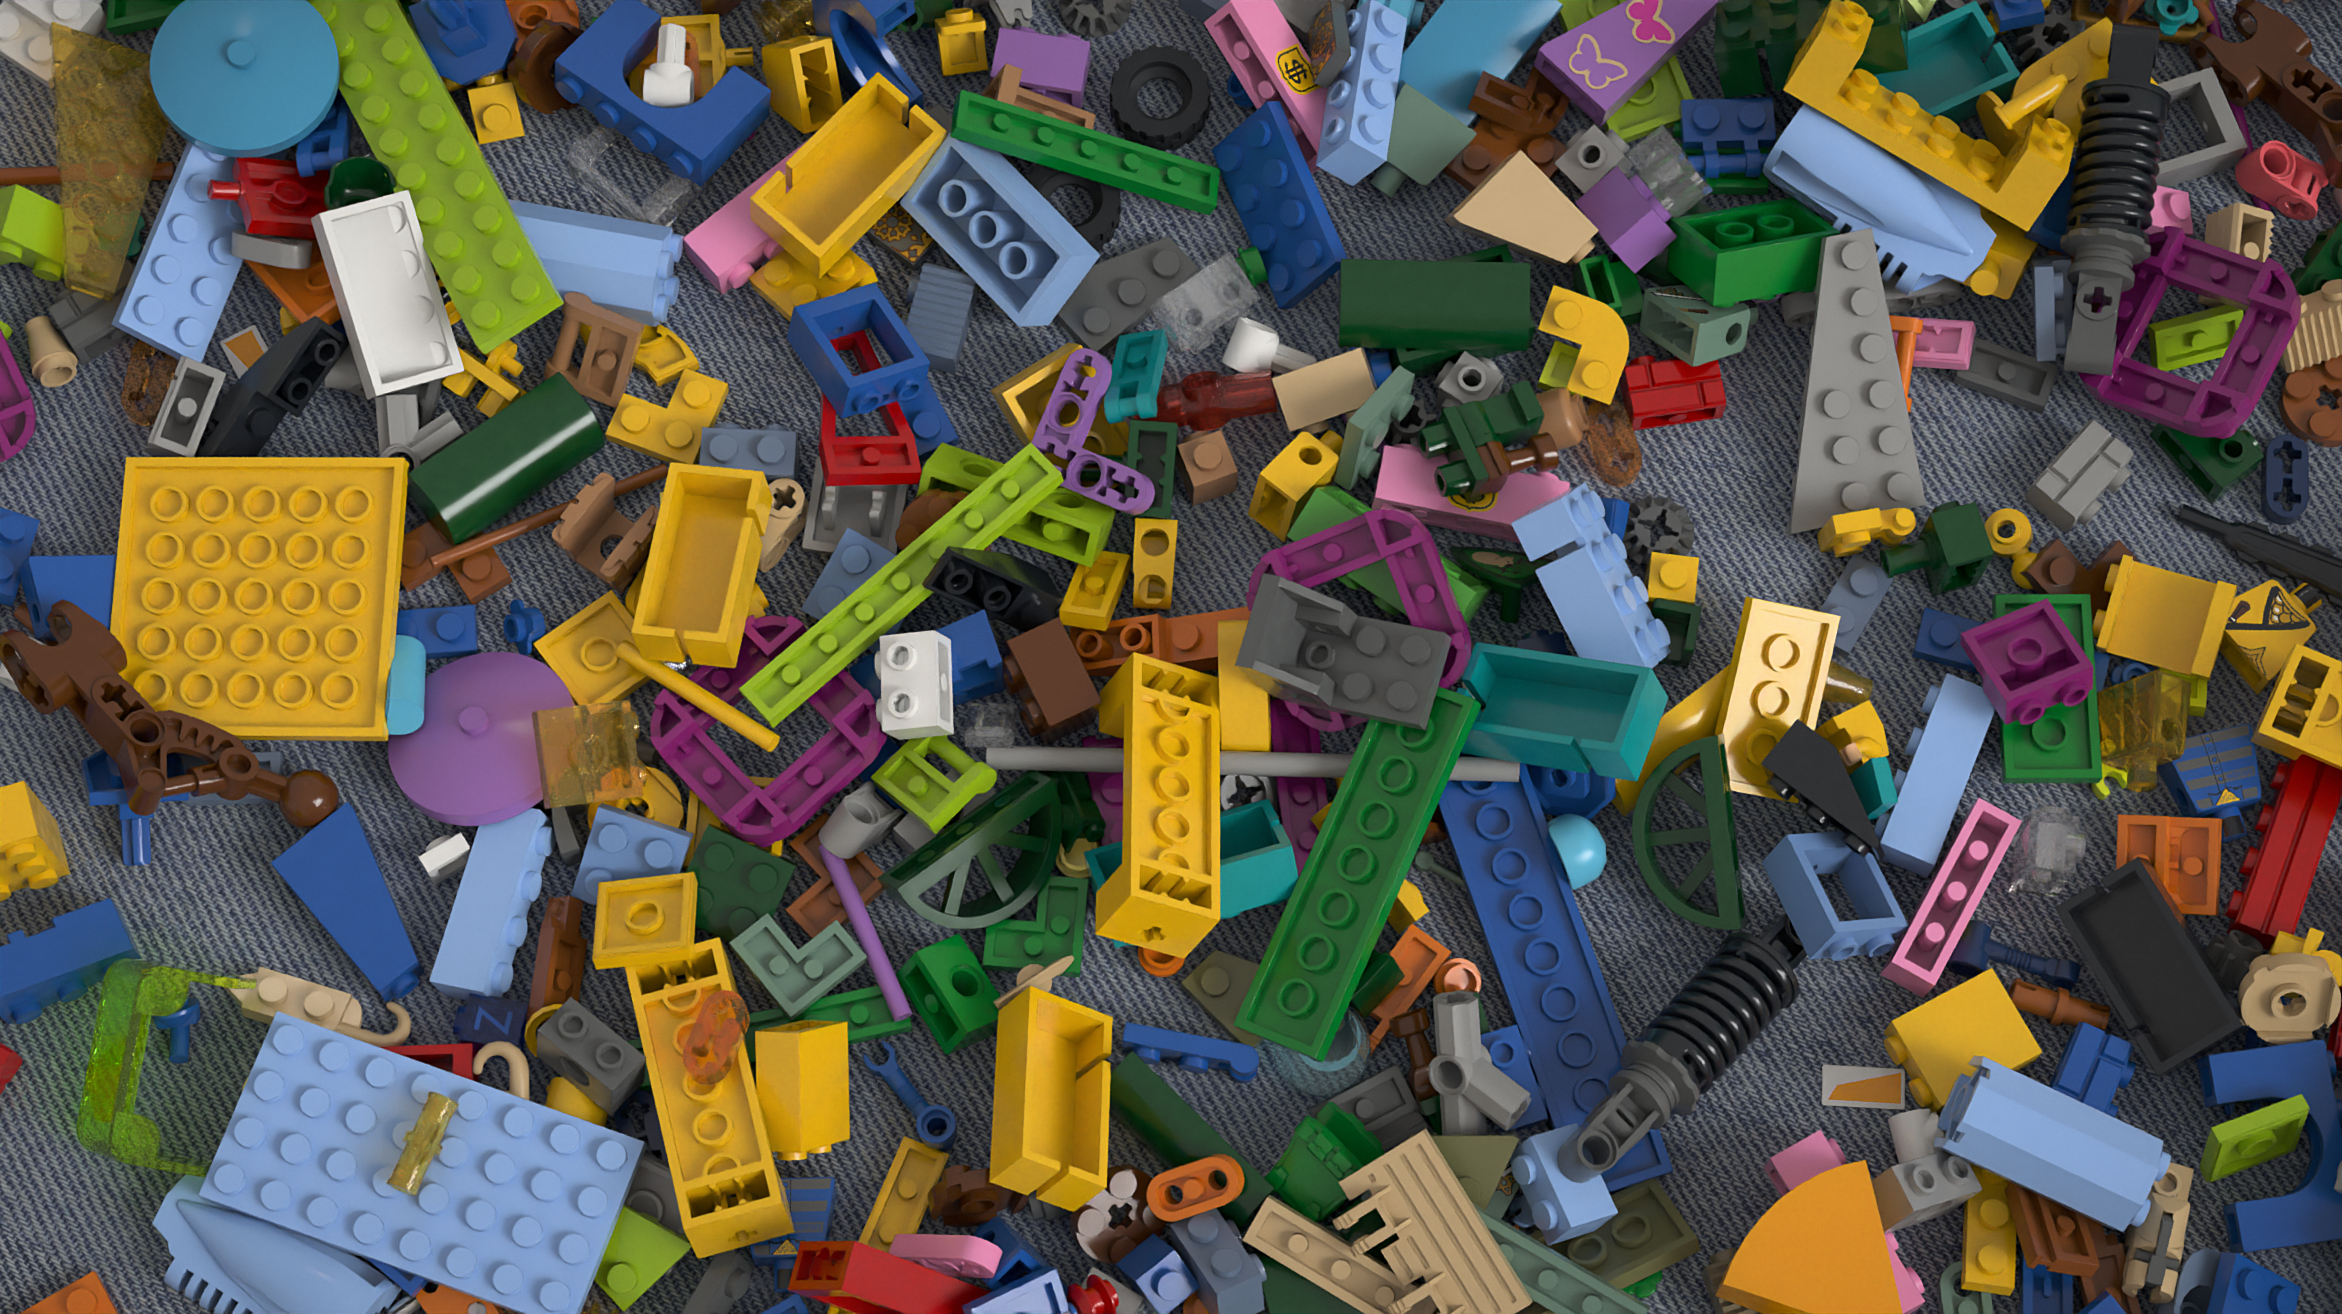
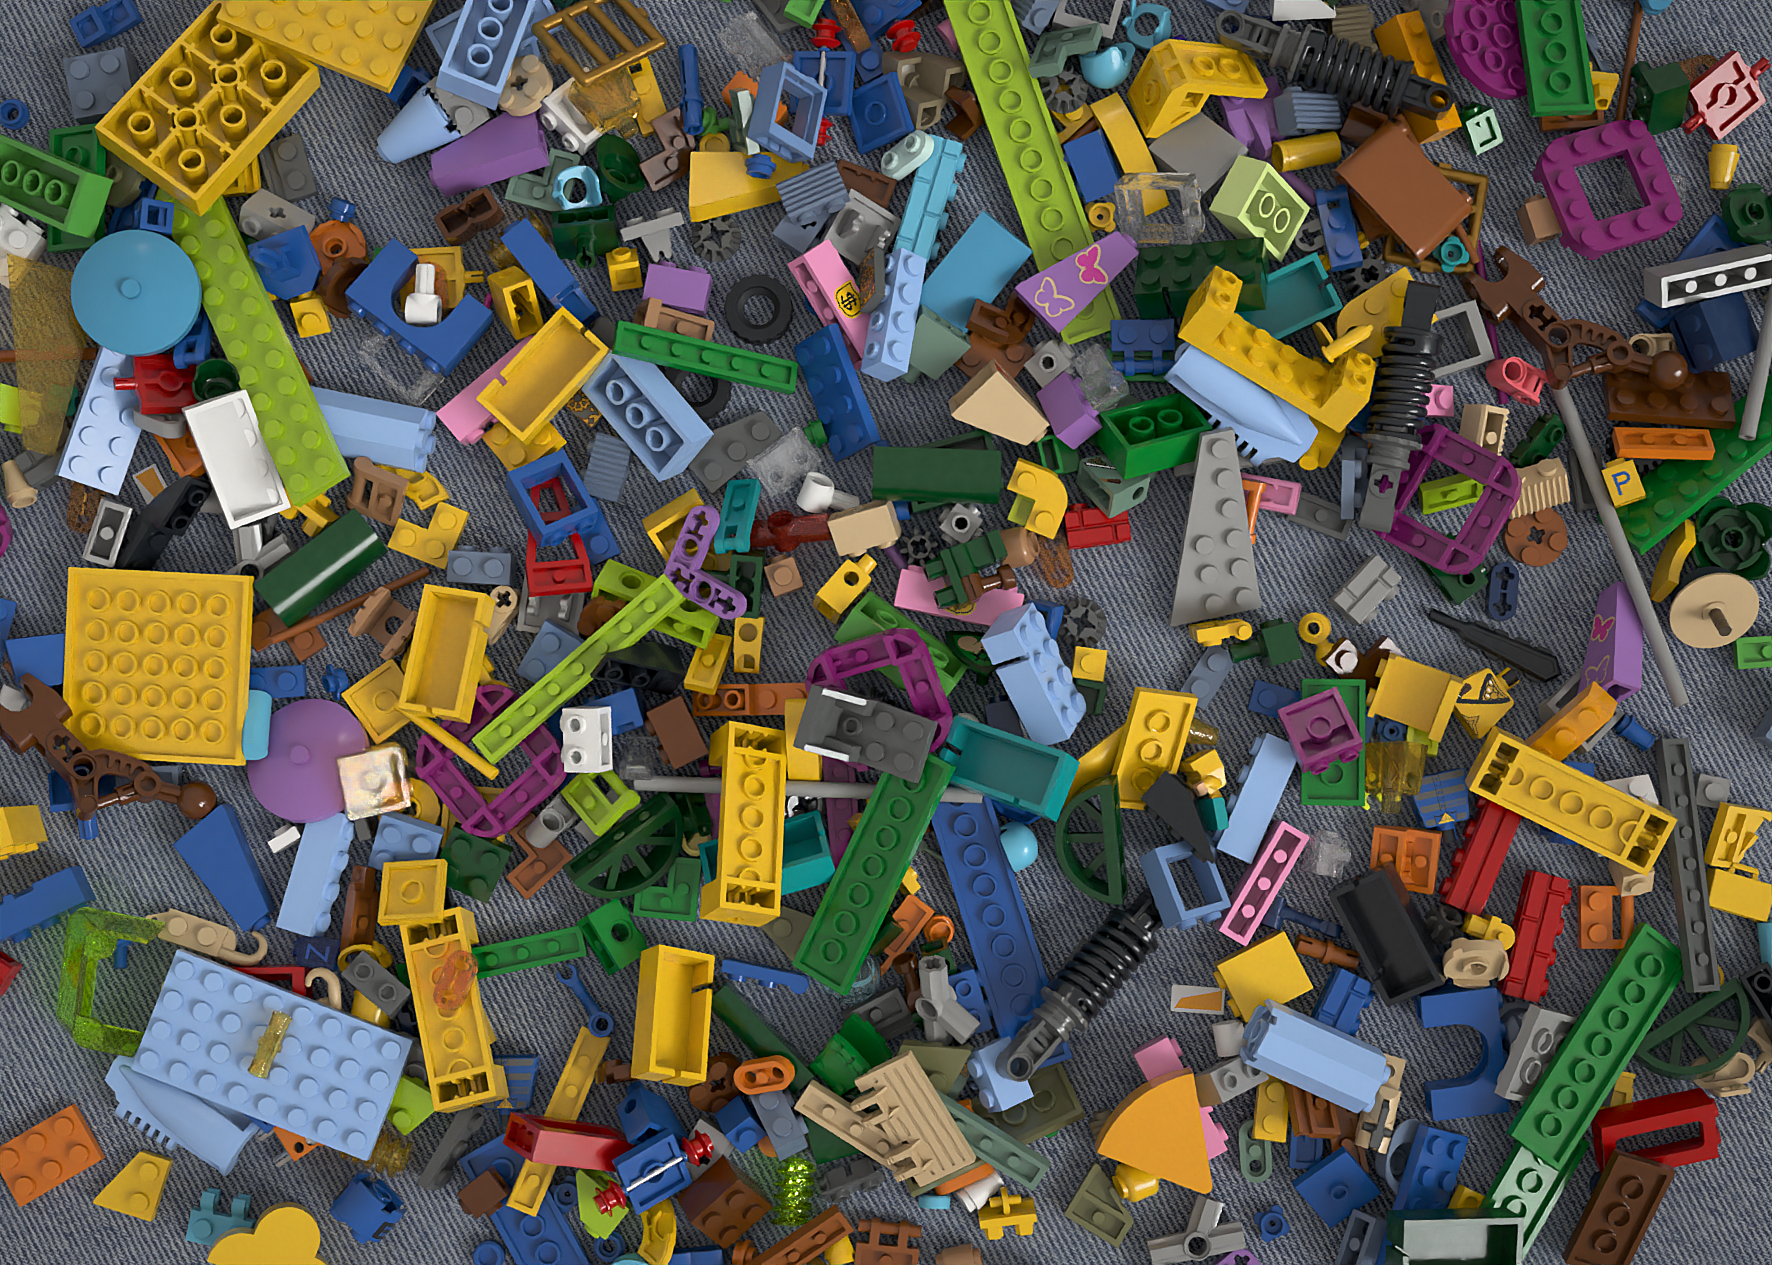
camera: 10 degrees right, 15 degrees up
(792, 975) = (509, 924): sand green plate -> none
(804, 1086) = (514, 1002): yellow brick -> none
(866, 935) = (558, 898): medium lavender piece -> none
(949, 1254) = (603, 1119): bright pink beam -> none
(1035, 976) = (664, 930): tan piece -> none
(1370, 425) = (886, 568): sand green plate -> none
(2253, 1138) = (1446, 1045): lime plate -> none

